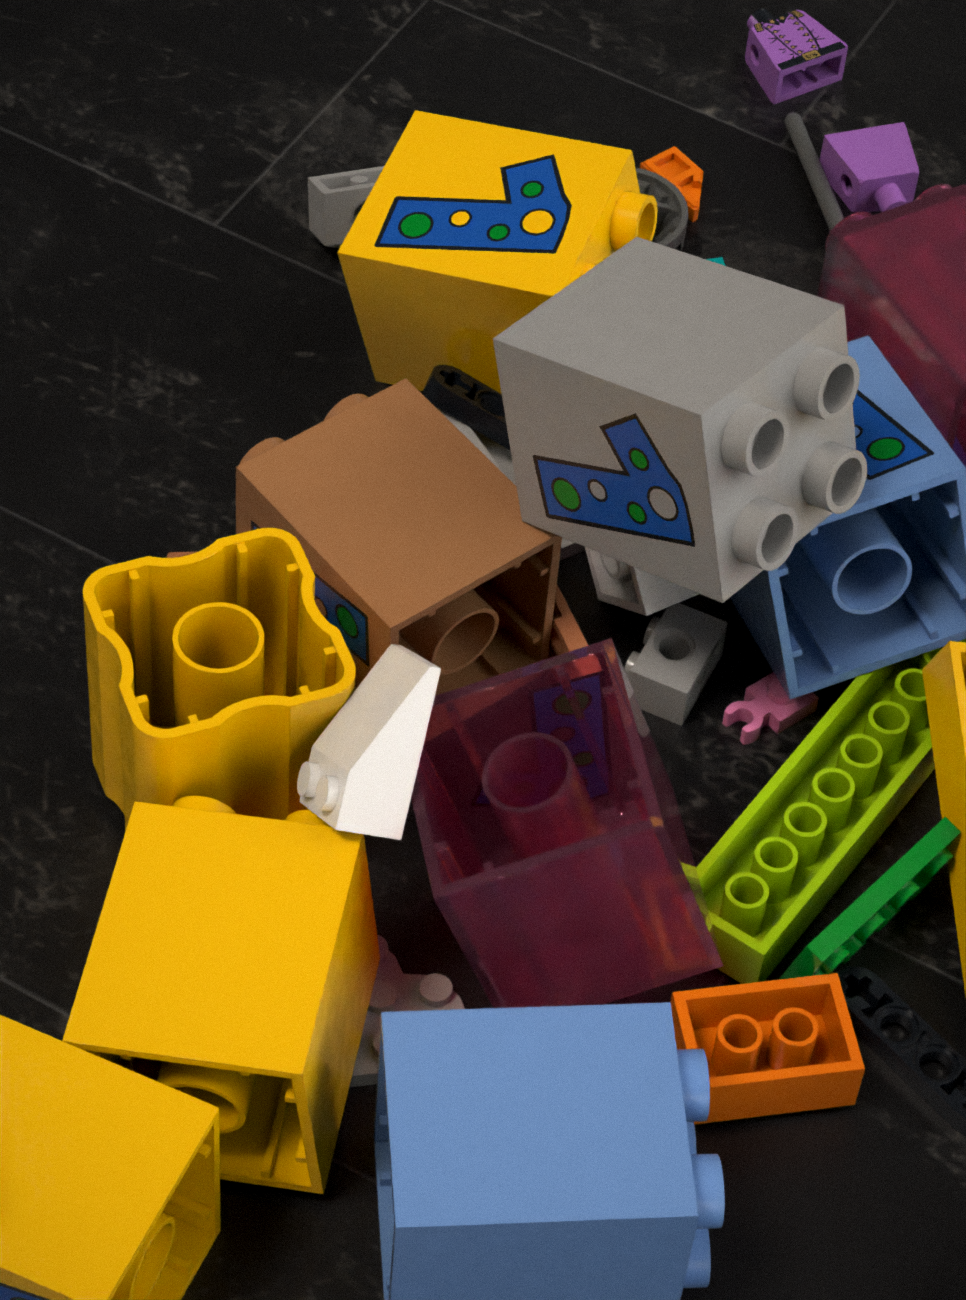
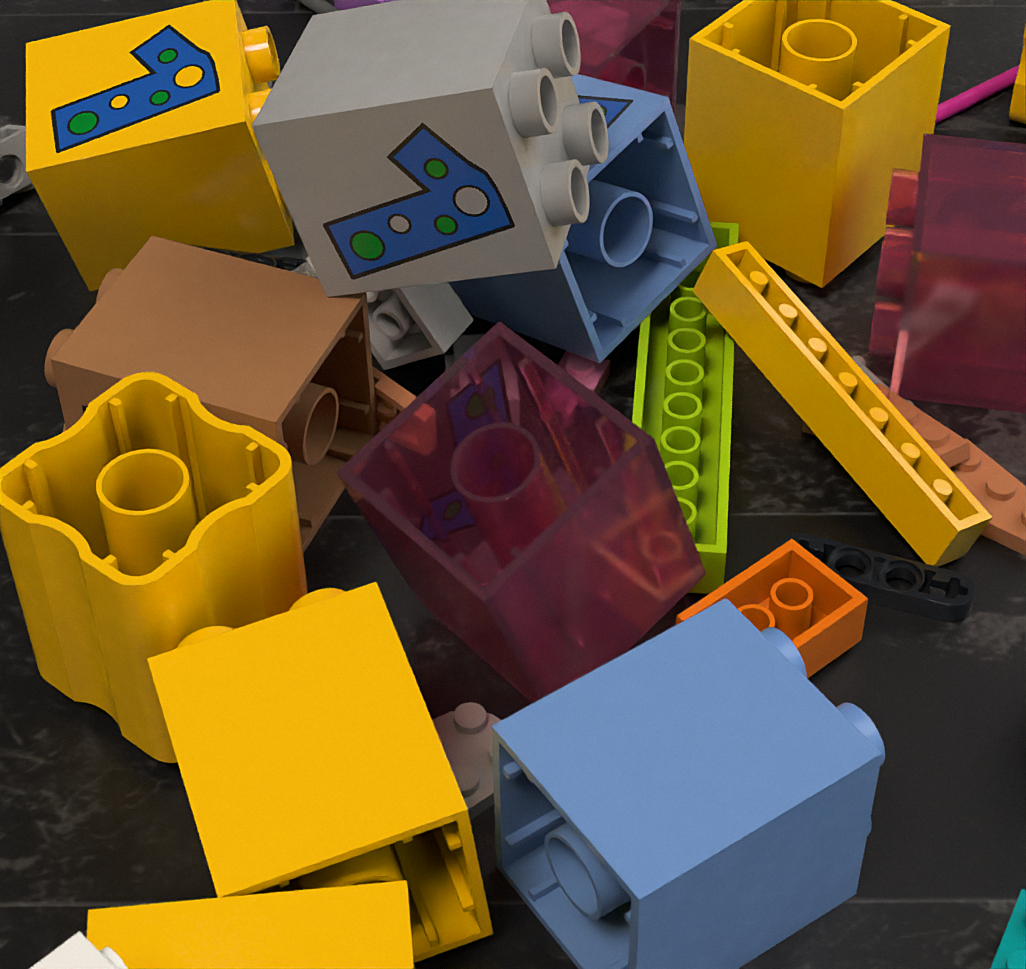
camera: 25 degrees left, 5 degrees down
(372, 748) = (345, 504): white slope -> none
(877, 904) = (774, 482): green plate -> none

